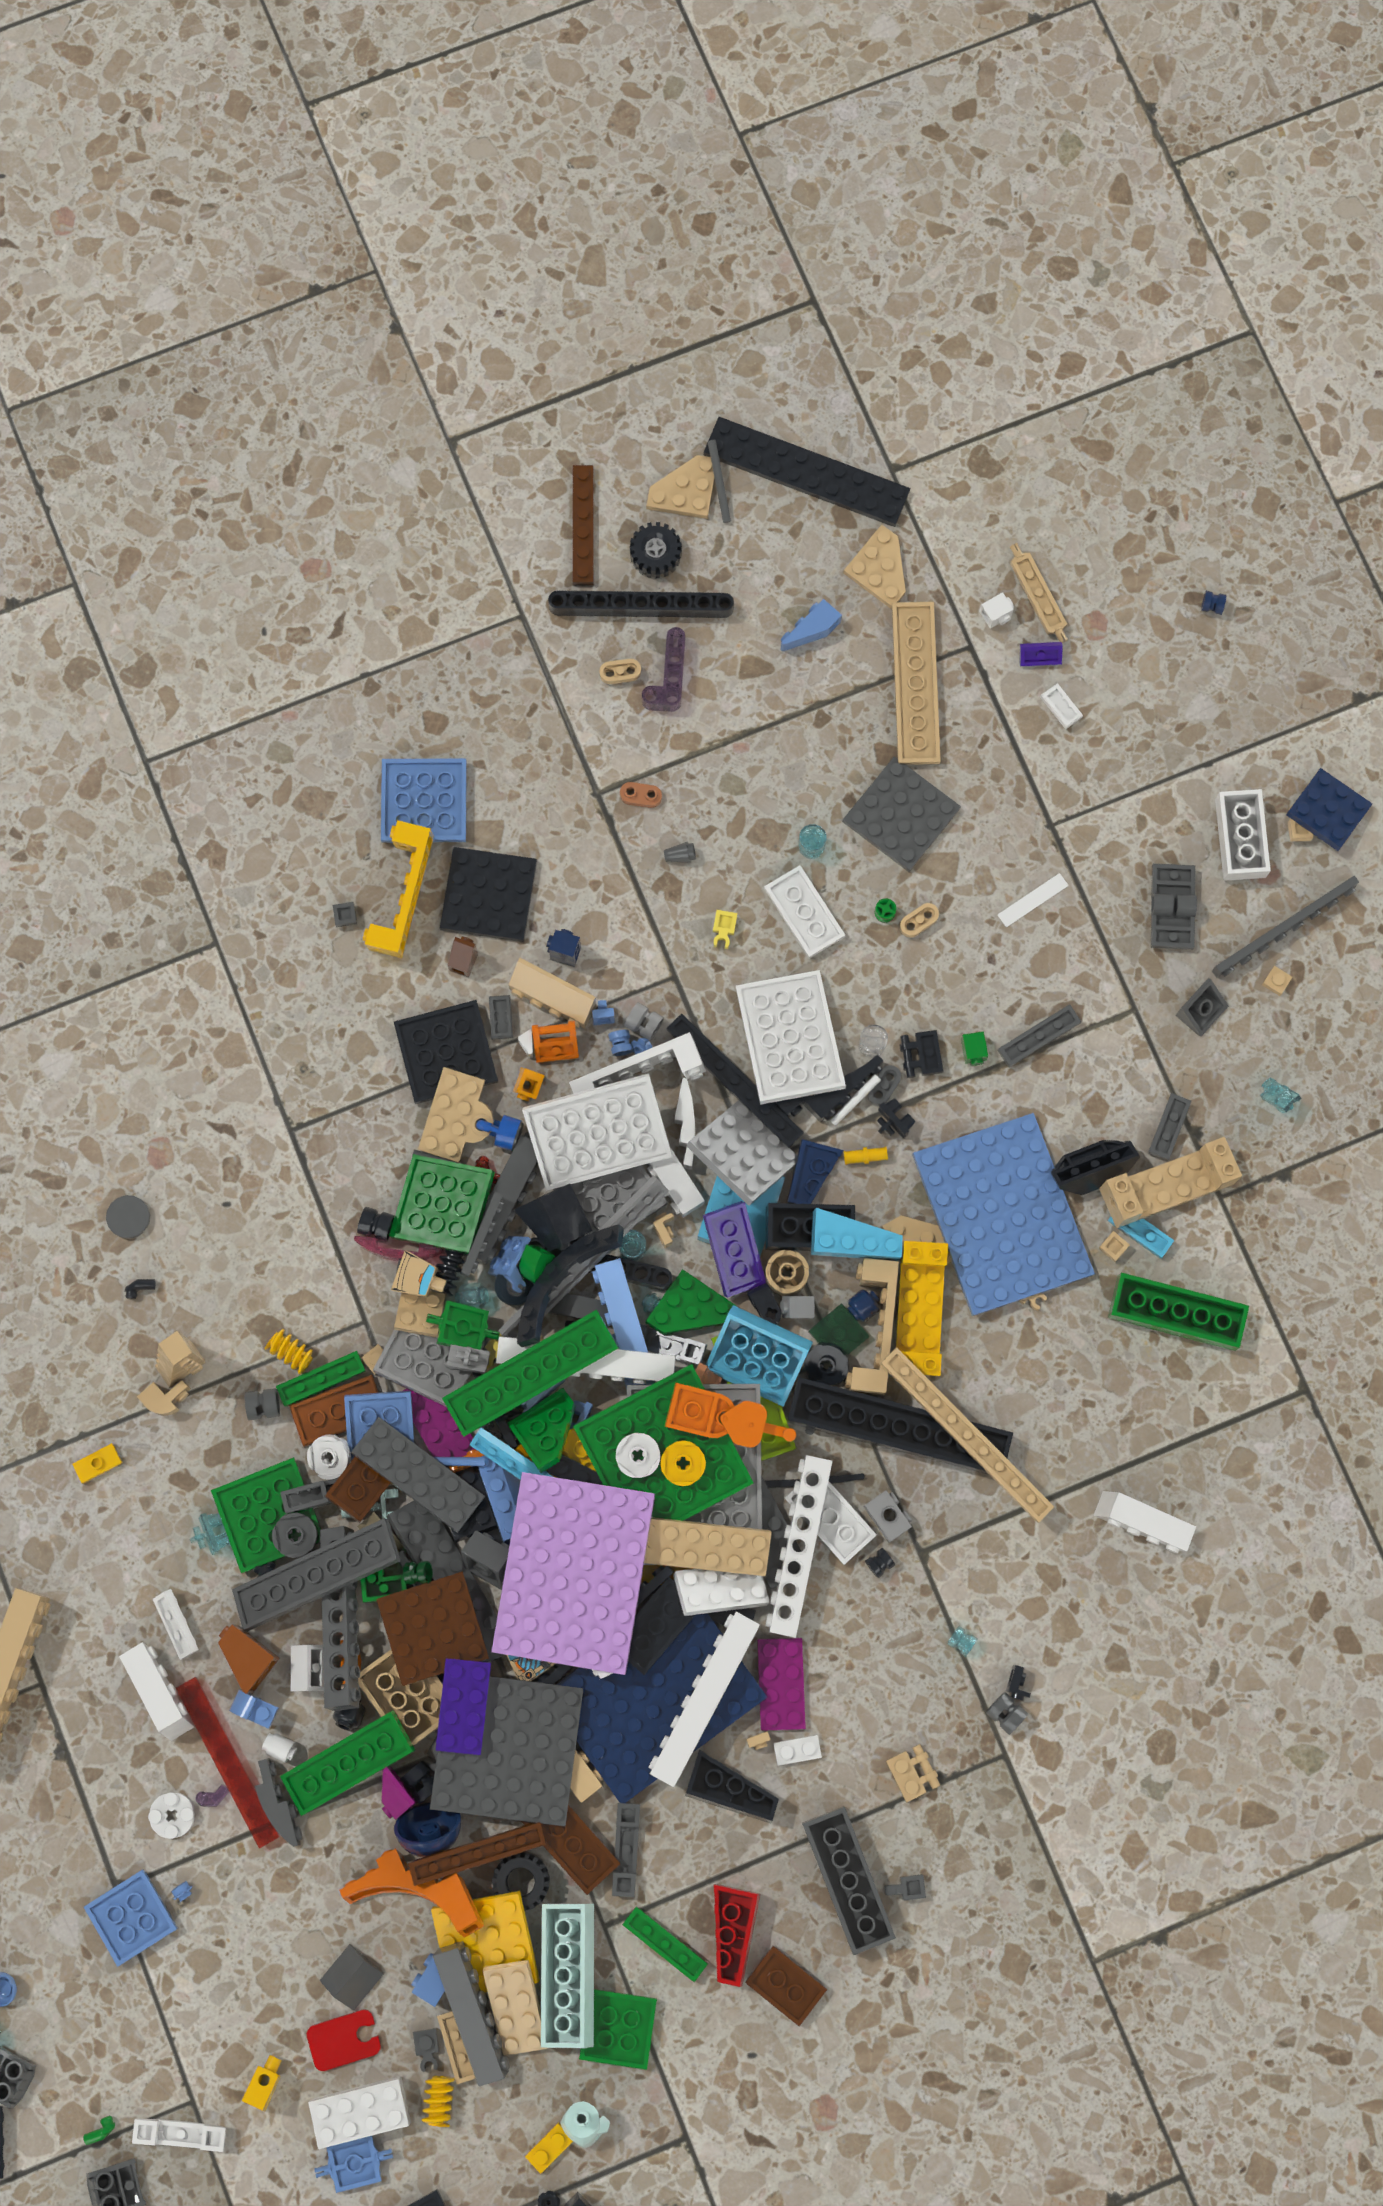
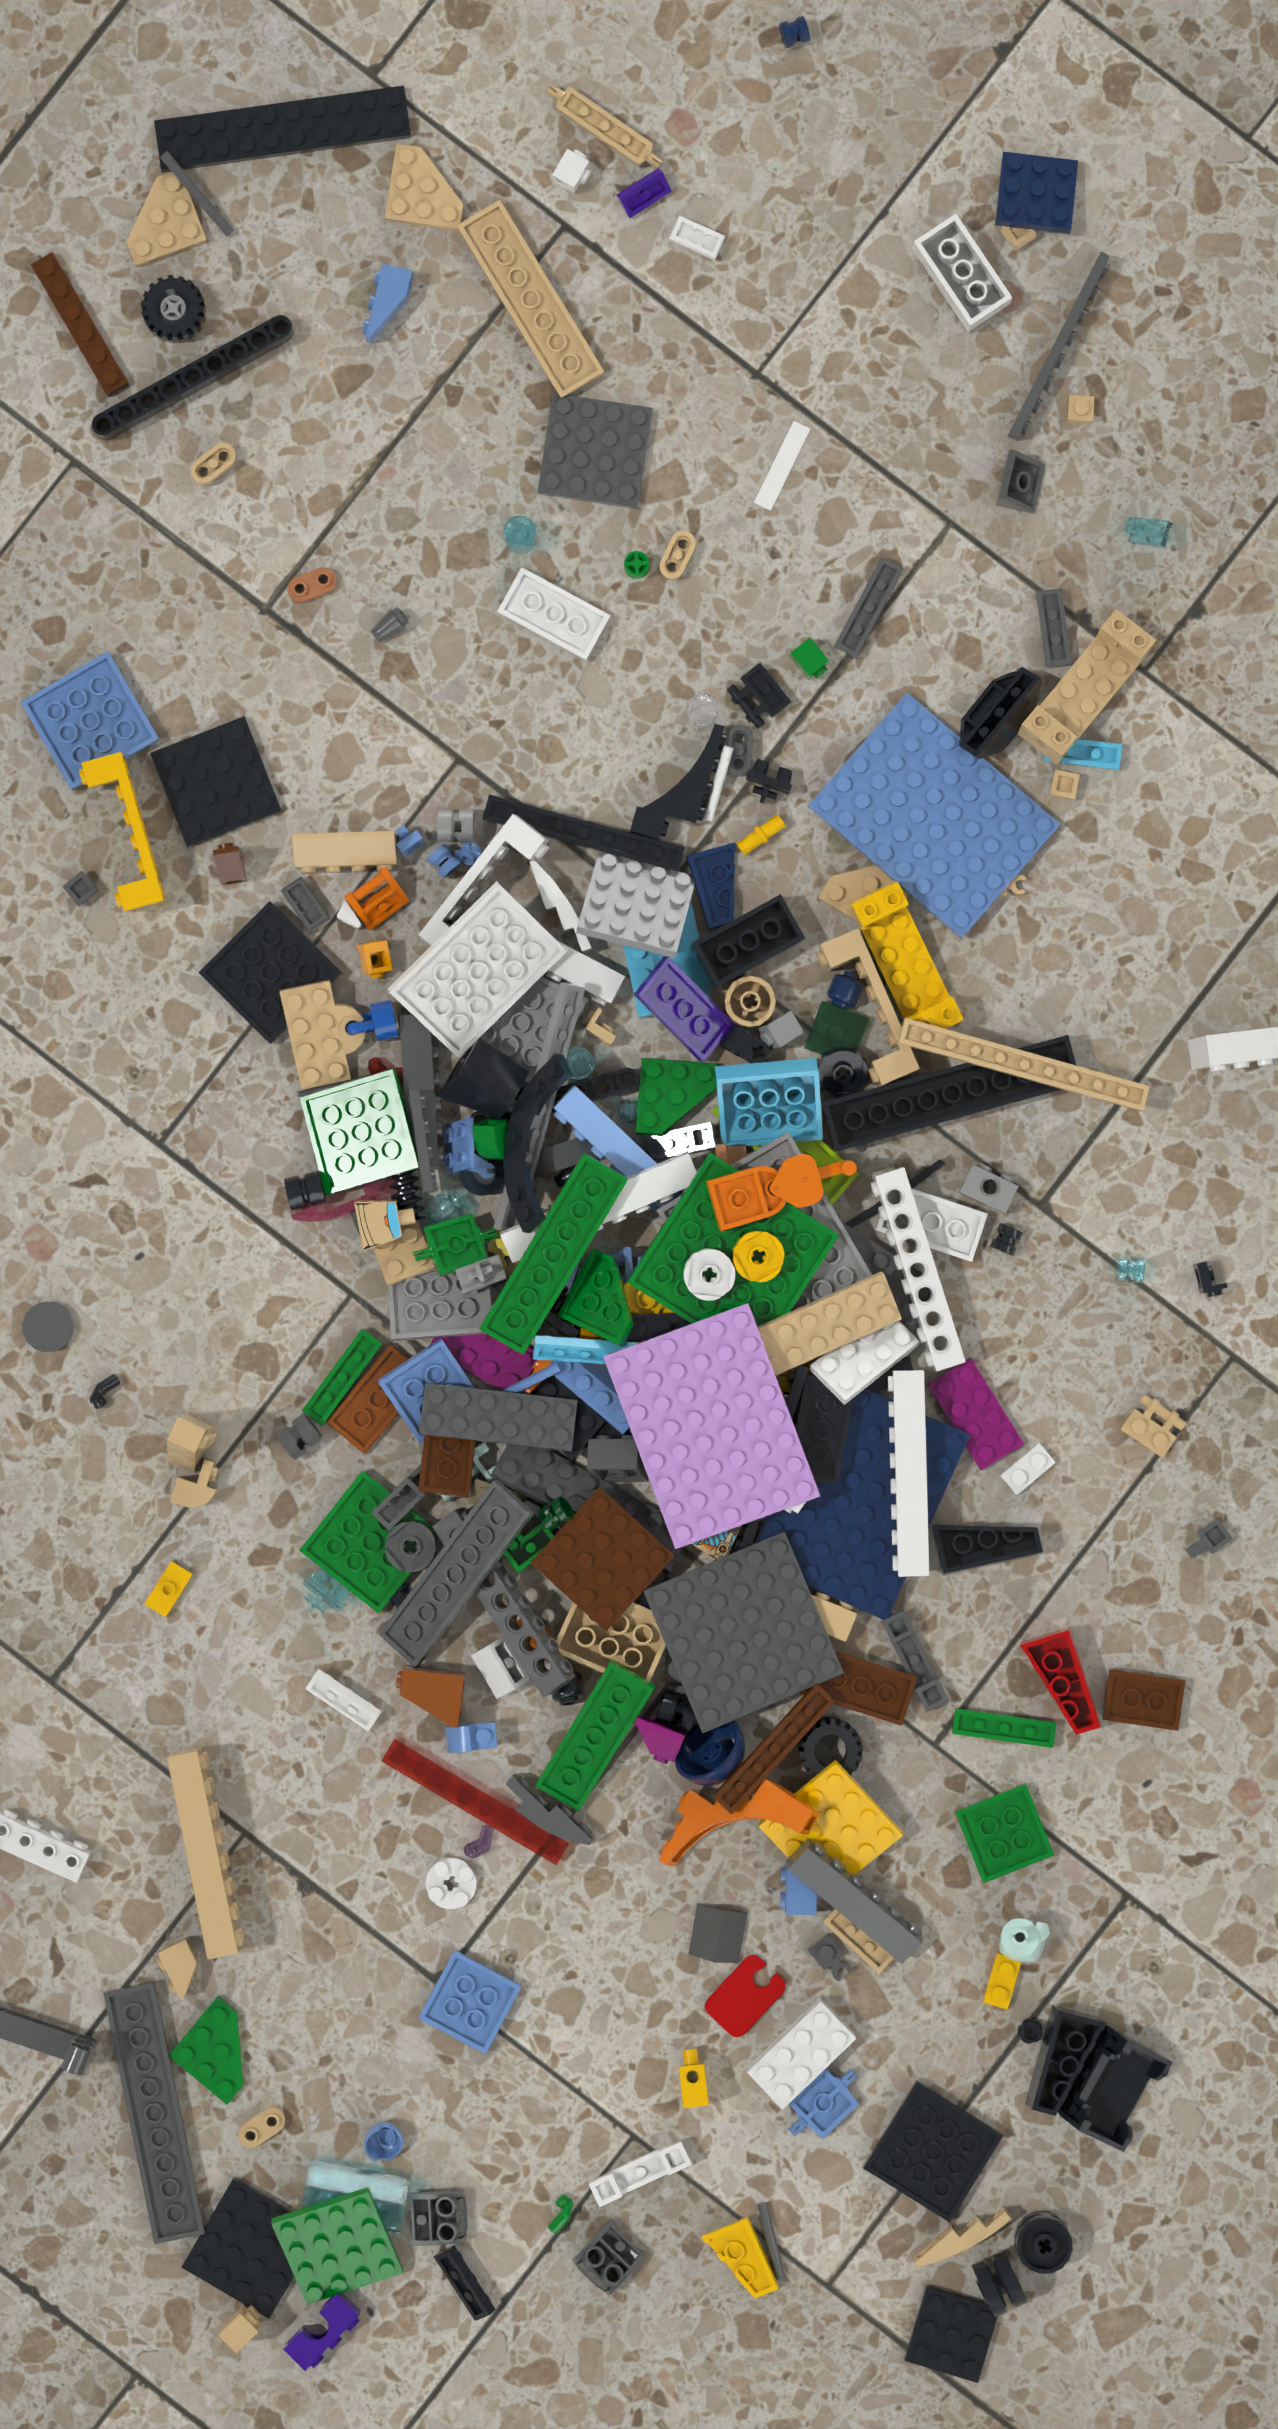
camera: 30 degrees left, 10 degrees up
(156, 1691) = (364, 1775): white wedge -> none
(182, 1891) = (505, 1948): medium blue plate -> none
(279, 1747) = (518, 1758): white brick -> none
(290, 1351) = (295, 1367): yellow piece -> none
(337, 1447) = (401, 1436): white plate -> none
(372, 1357) = (381, 1325): tan plate -> none
(437, 2101) = (870, 1999): yellow piece -> none
(463, 1706) = (678, 1617): dark purple plate -> none
(514, 2006) = (894, 1870): tan plate -> none
(564, 947) = (328, 795): dark blue brick -> none
(567, 1976) = (927, 1811): light aqua brick -> none
(670, 669) = (266, 431): clear purple beam -> none
(724, 925) = (479, 675): light yellow plate -> none
(758, 1741) = (984, 1481): tan plate -> none
(790, 1037) = (615, 756): white plate -> none
(848, 1880) = (1148, 1565): dark grey brick -> none
(849, 1238) = (795, 932): medium azure wedge -> none
(1012, 1719) = (1222, 1317): dark grey wheel -> none
(1173, 906) = (931, 390): dark grey plate -> none
(1178, 1311) = (1166, 815): green brick -> none

